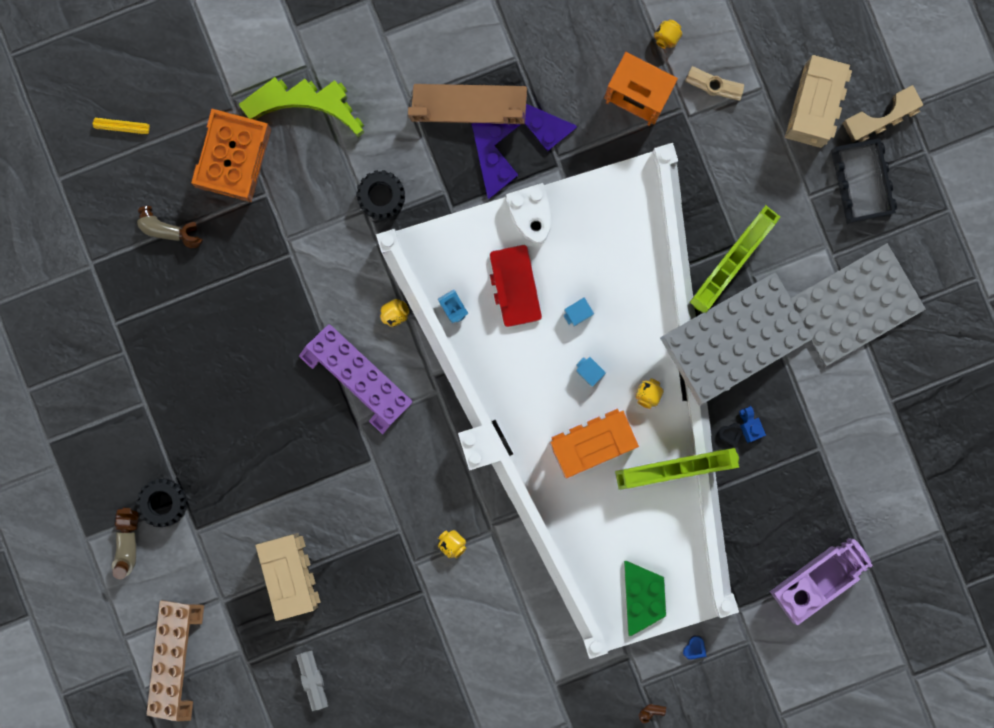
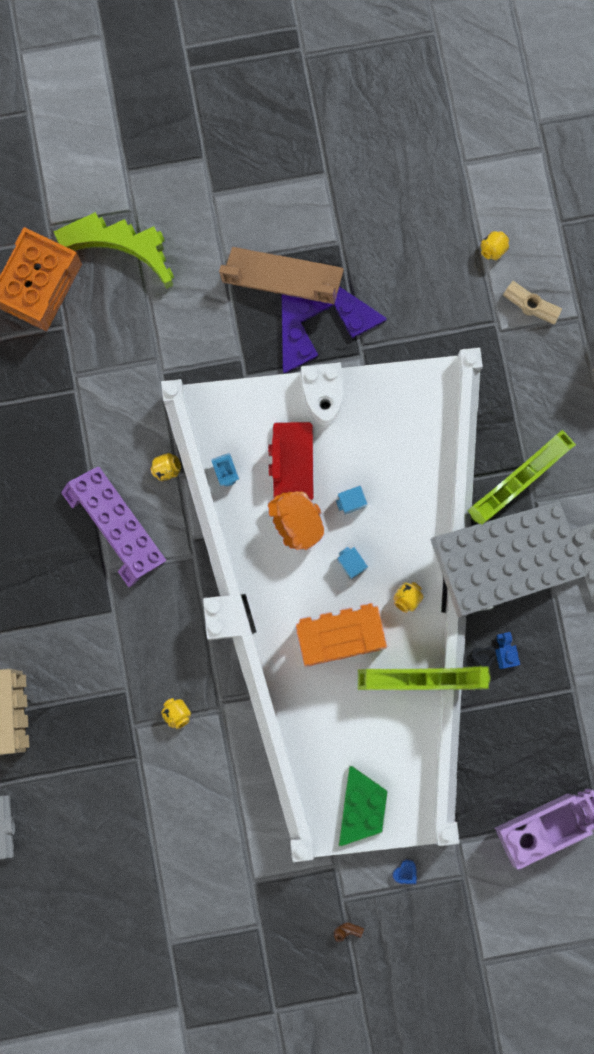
camera: 15 degrees right, 5 degrees down
(380, 178) = (170, 333): black tyre -> none
(530, 341) = (296, 520): none -> orange animal
(642, 84) = (459, 283): orange container -> none

